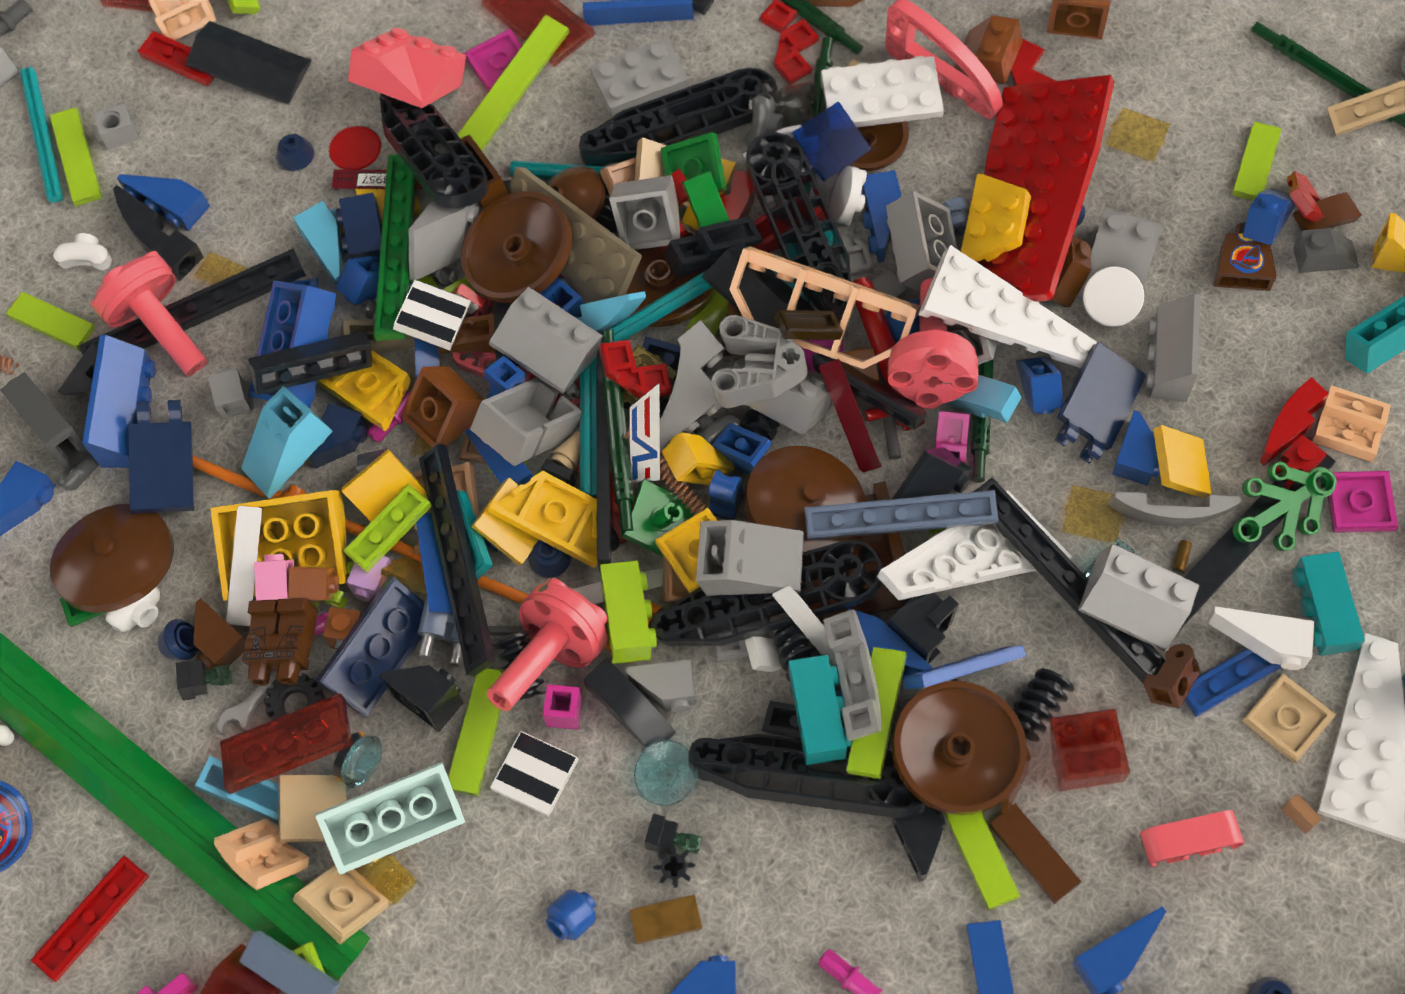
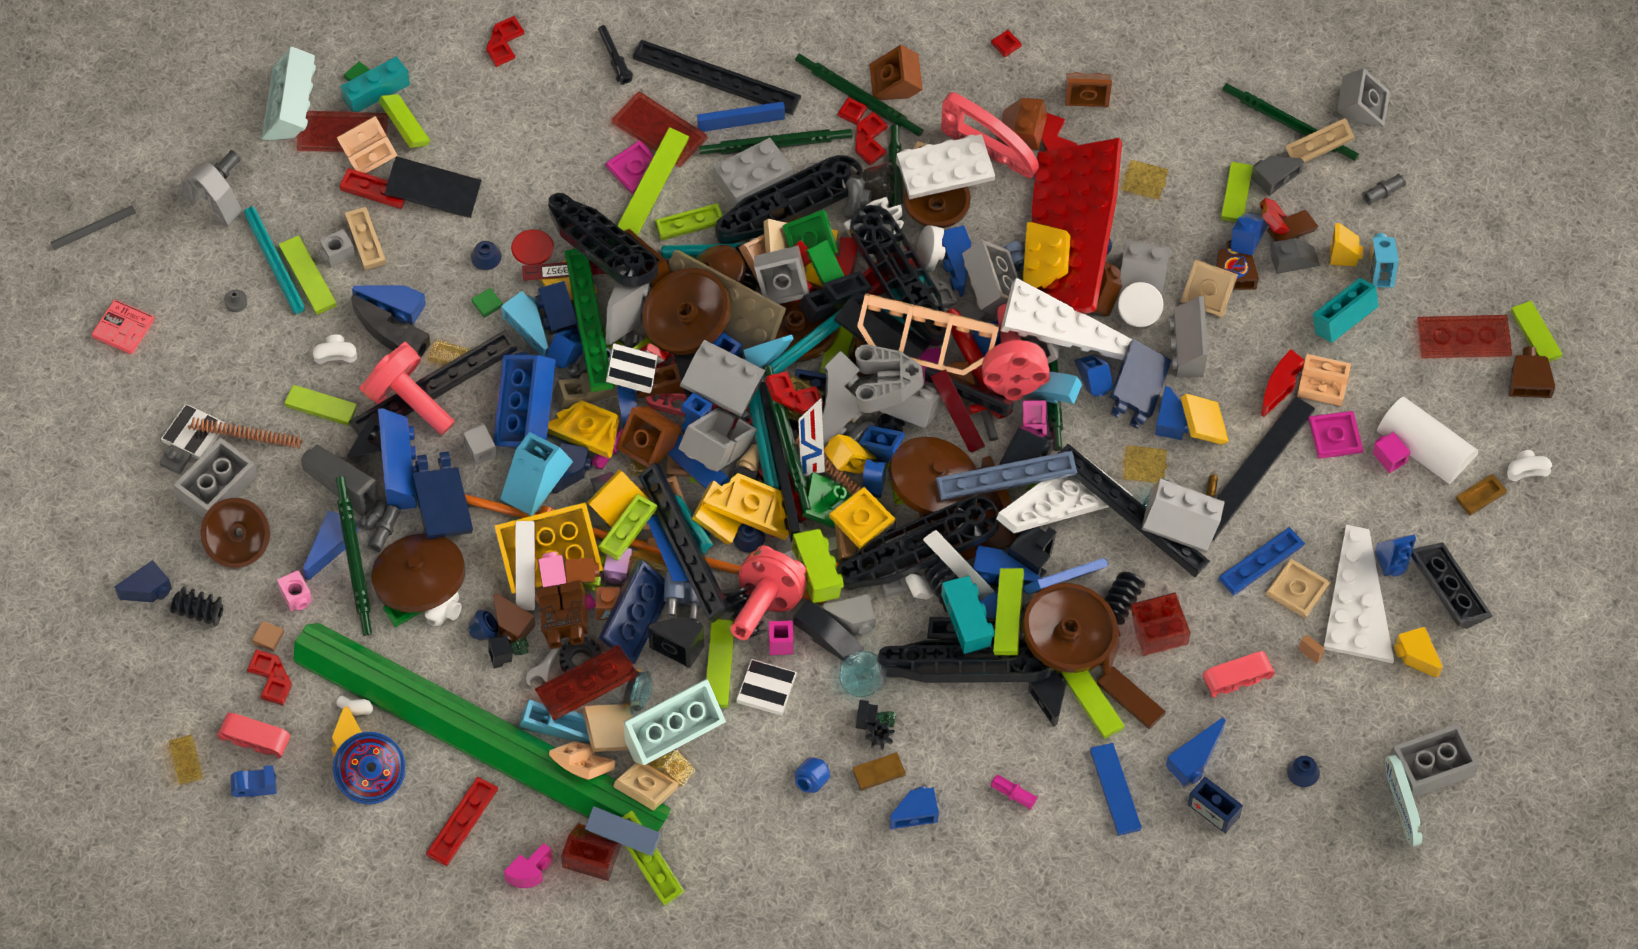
camera: 15 degrees left, 5 degrees down
(32, 526) = (353, 556): none -> dark green axle
(86, 491) = (384, 528): none -> dark grey pin
(154, 118) = (365, 238): none -> tan plate
(282, 211) = (487, 302): none -> green tile
(310, 362) = (546, 412): black slope -> none
(407, 67) = (568, 180): coral slope -> none
(549, 134) = (688, 221): none -> lime tile
(690, 44) = (780, 141): none -> dark green axle
(748, 558) = (901, 516): light grey slope -> none
(808, 325) = (920, 346): dark brown tile -> none
(831, 141) = (913, 208): clear blue tile -> none
(855, 673) = (989, 585): light grey slope -> none
(1135, 506) = (1174, 455): light grey slope -> none
(1174, 678) = (1214, 568): reddish brown leg -> none
(1213, 278) = (1213, 284): none -> tan tile
(1272, 637) = (1279, 533): white slope -> none
(1288, 503) = (1283, 440): plant -> none
(1301, 456) = (1288, 409): red plate -> none
(1312, 139) = (1276, 172): none -> dark grey slope
(1328, 603) = (1317, 507): teal brick -> none

